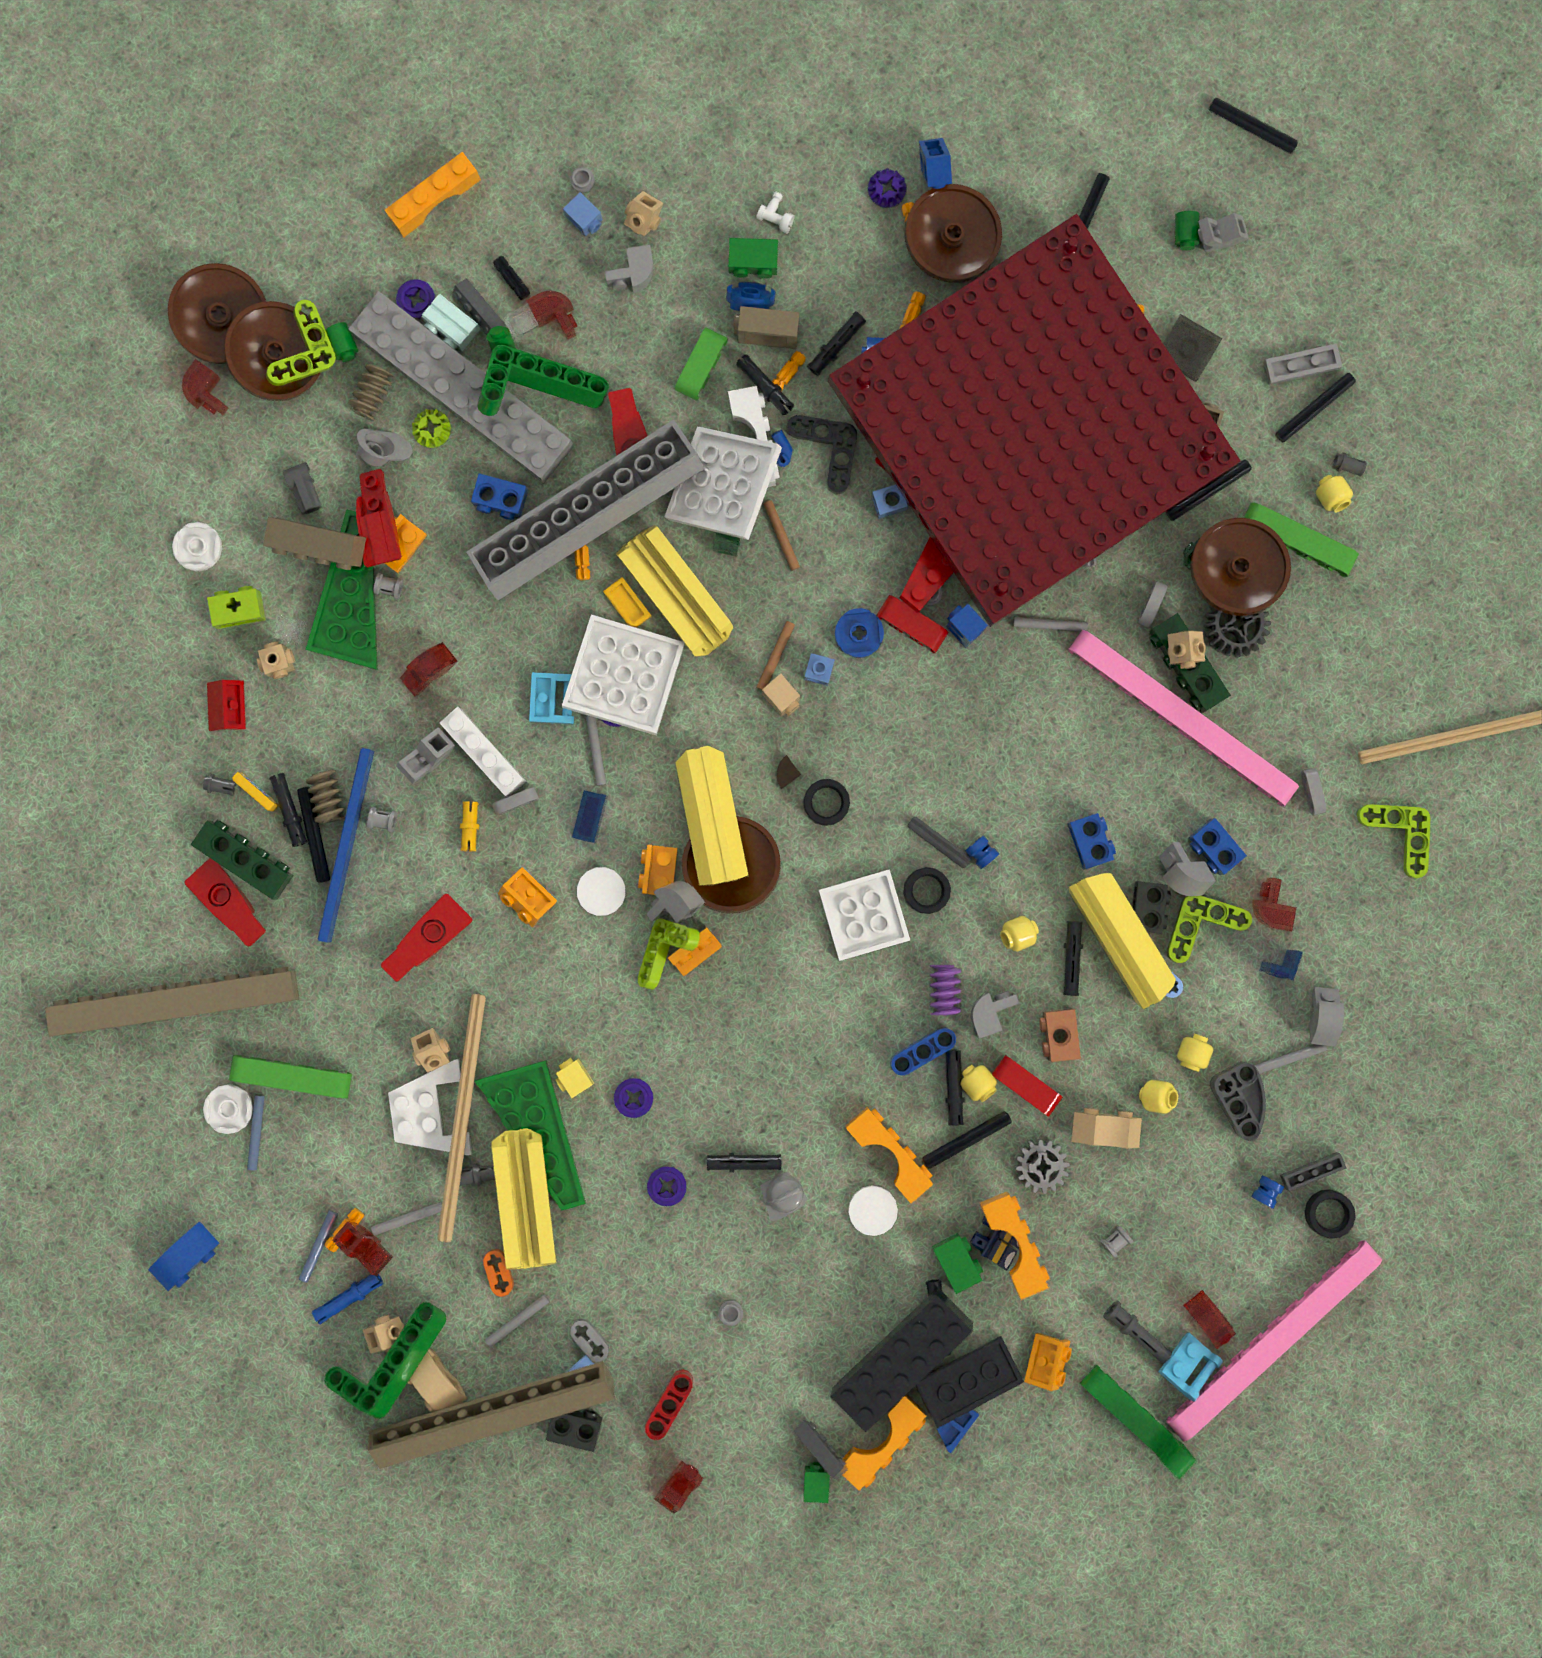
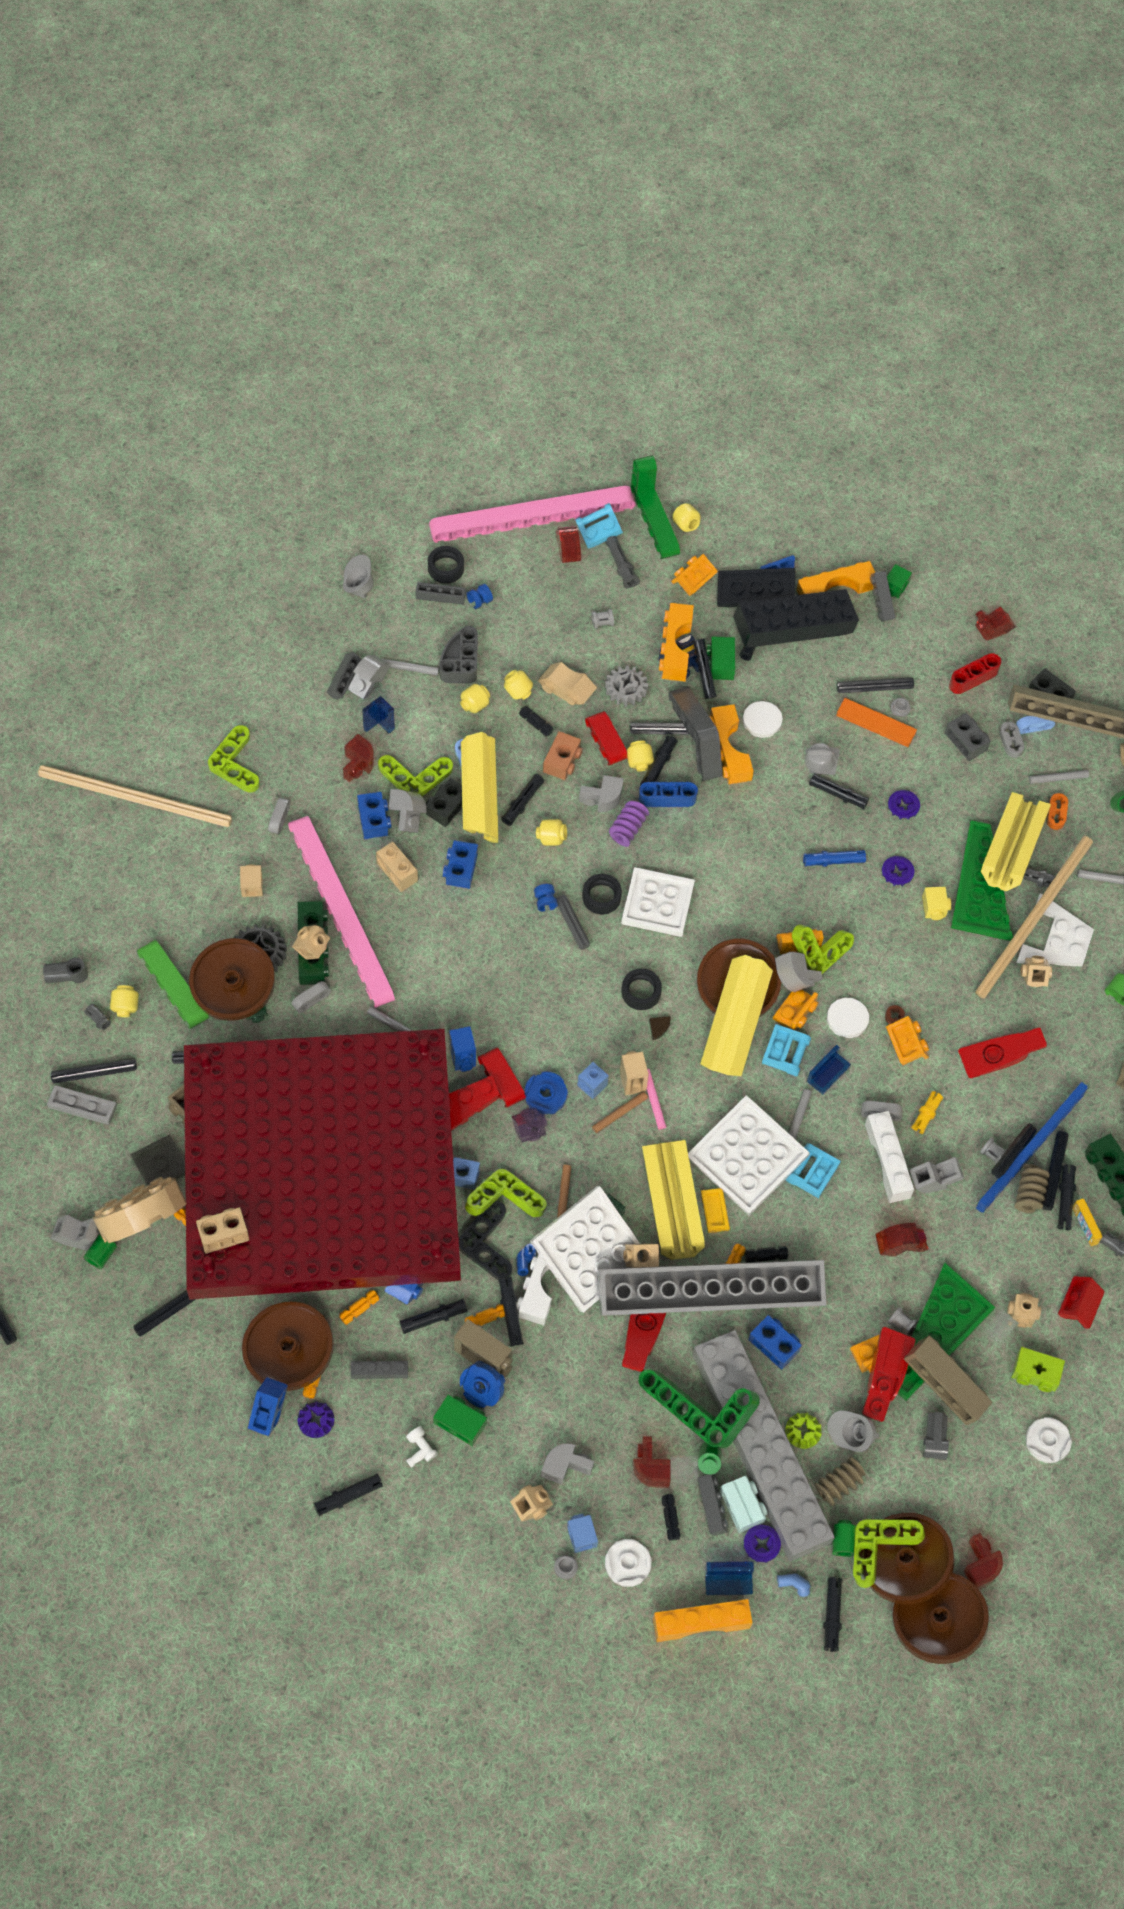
camera: 155 degrees left, 25 degrees down
(315, 260) = (832, 1624): none -> black pin
(360, 824) = (1013, 1151): none -> black axle
(366, 281) = (796, 1581): none -> medium blue arm
(429, 250) = (729, 1578): none -> clear blue panel
(531, 223) = (628, 1570): none -> white tile
(554, 585) = (766, 1254): none -> black axle
(561, 916) = (894, 1008): none -> copper bush
(641, 1307) = (965, 738): none -> dark grey brick
(653, 817) = (779, 1047): none -> medium azure plate
(662, 507) = (650, 1255): none -> tan brick
(702, 359) = (553, 1356): bright green beam -> none
(708, 1074) = (828, 858): none -> blue pin
(747, 1278) = (876, 722): none -> orange tile
(749, 689) = (655, 1103): none -> bright pink bar
(772, 1327) = (875, 685): none -> black axle
(821, 125) = (347, 1495): none -> black pin
(847, 503) = (501, 1188): none -> lime beam
(854, 585) = (529, 1125): none -> clear purple brick
(856, 264) = (379, 1369): none -> dark grey piece
(934, 1147) = (701, 730): none -> dark grey beam
(986, 1252) = (704, 668): none -> black pin
(1075, 277) = (224, 1235): none -> tan brick
(1098, 1436) = (686, 517): none -> light yellow head
(1114, 1066) = (536, 721): none -> black axle
(1155, 798) = (397, 866): none -> tan brick
(1173, 268) = (139, 1209): none -> tan piece
(1294, 699) = (251, 880): none -> tan brick
(1353, 1002) = (343, 675): none -> dark grey piece
(1414, 491) = (65, 971): none -> dark grey piece
(1415, 1136) = (358, 576): none -> light grey piece

